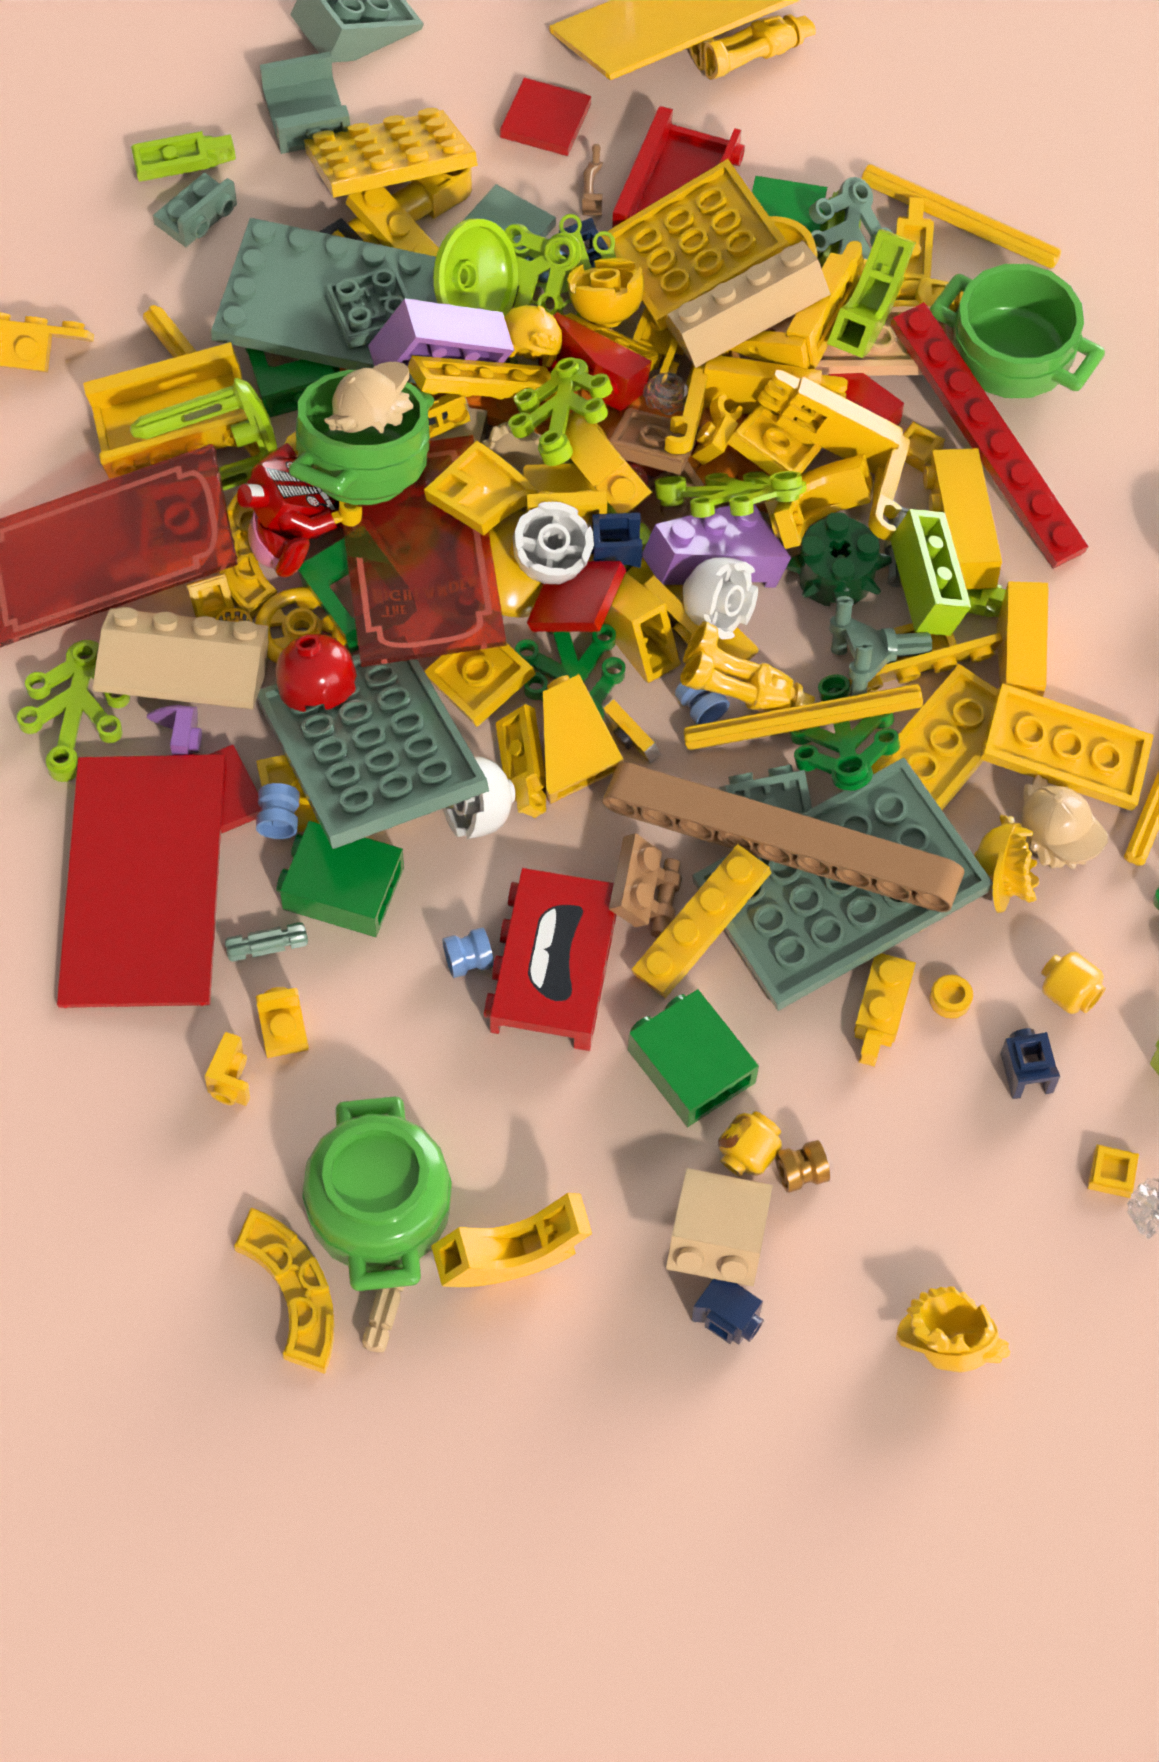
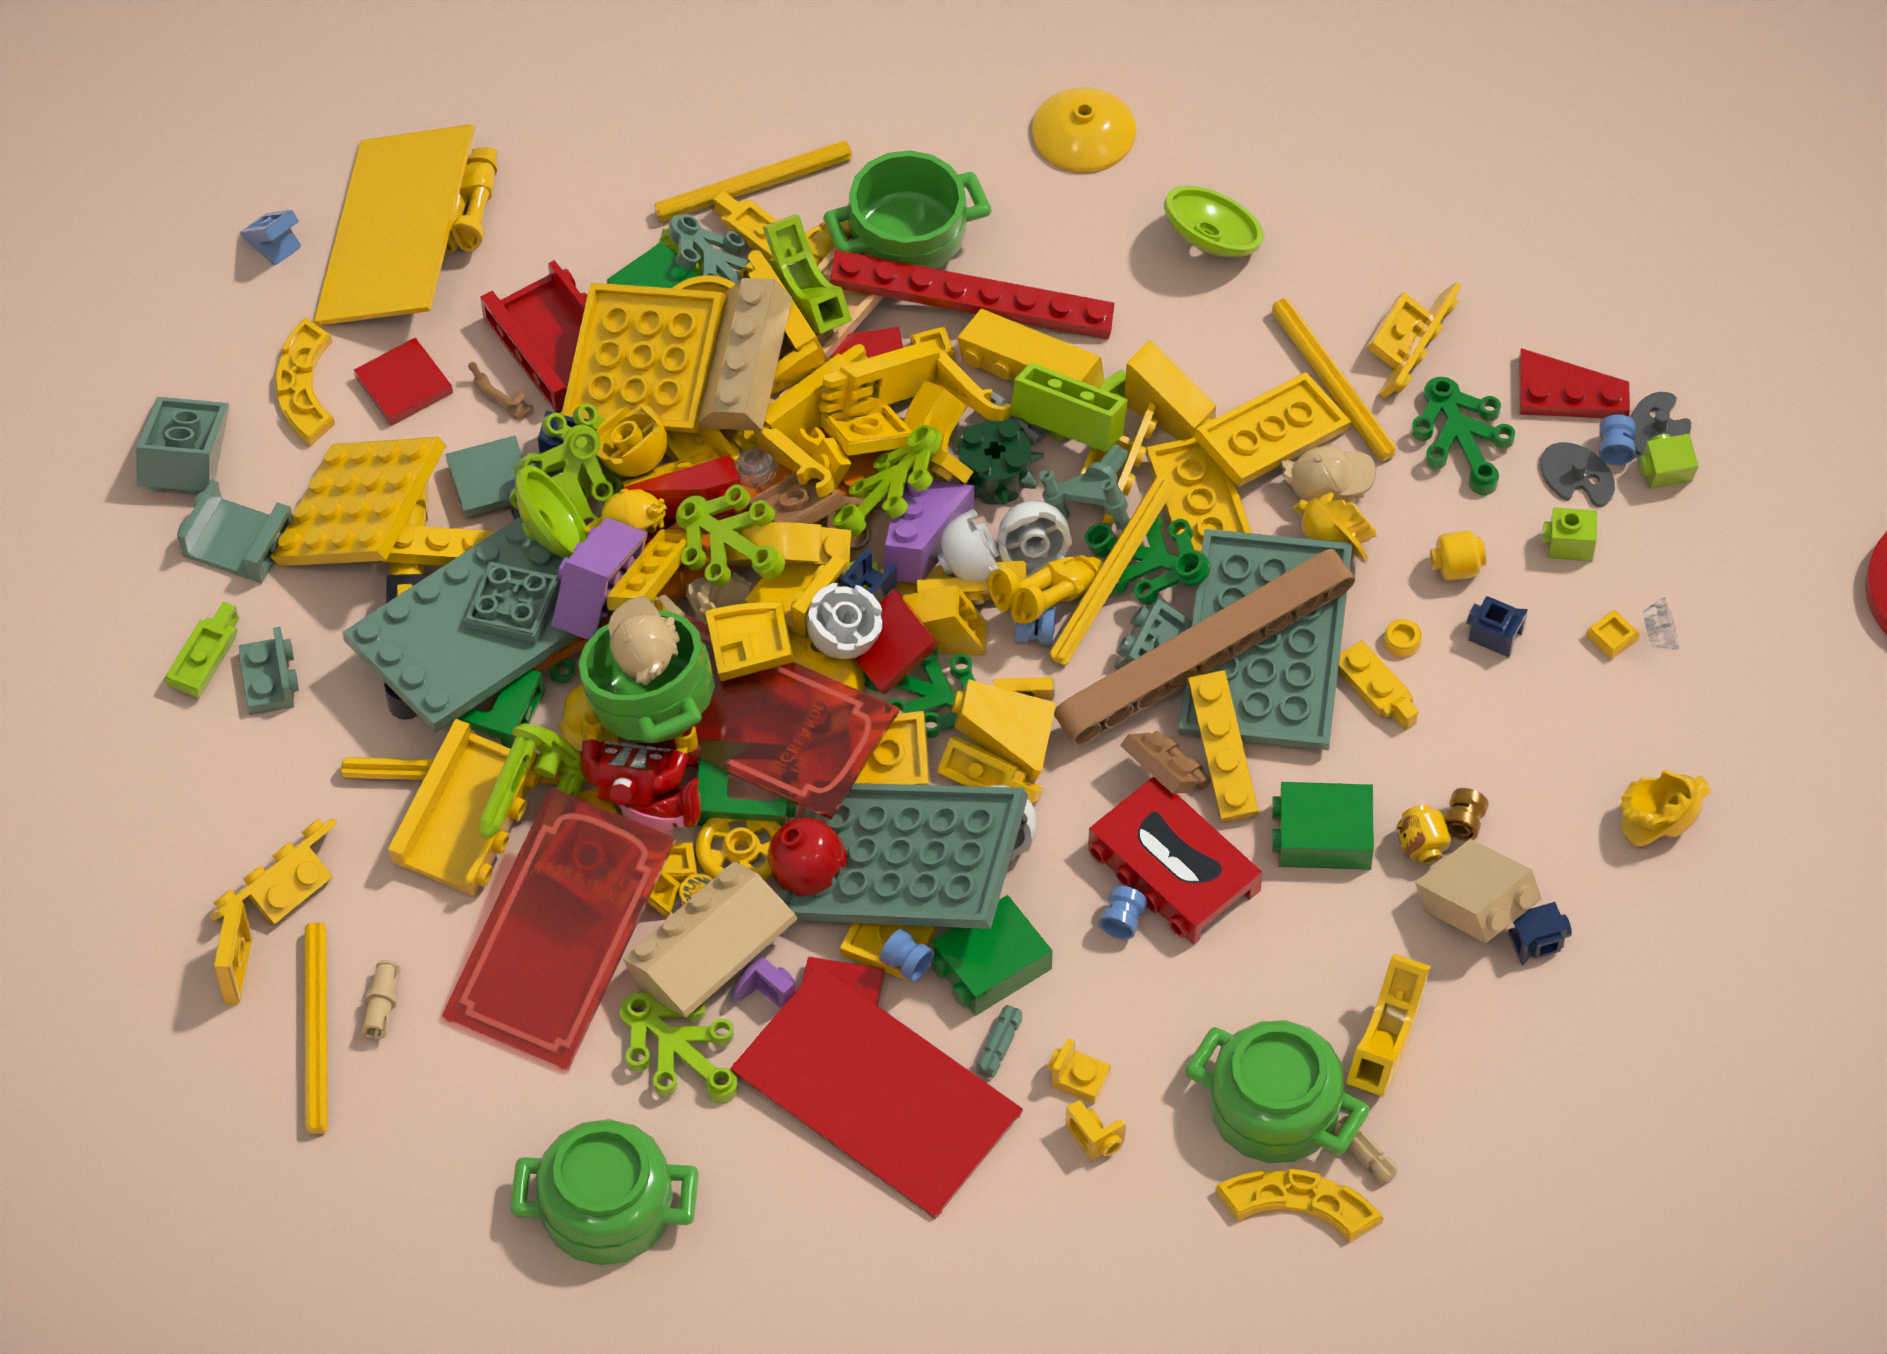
camera: 50 degrees left, 5 degrees down
(484, 50) = (295, 382): none -> yellow tile
(786, 635) = (1033, 534): none -> white cylinder

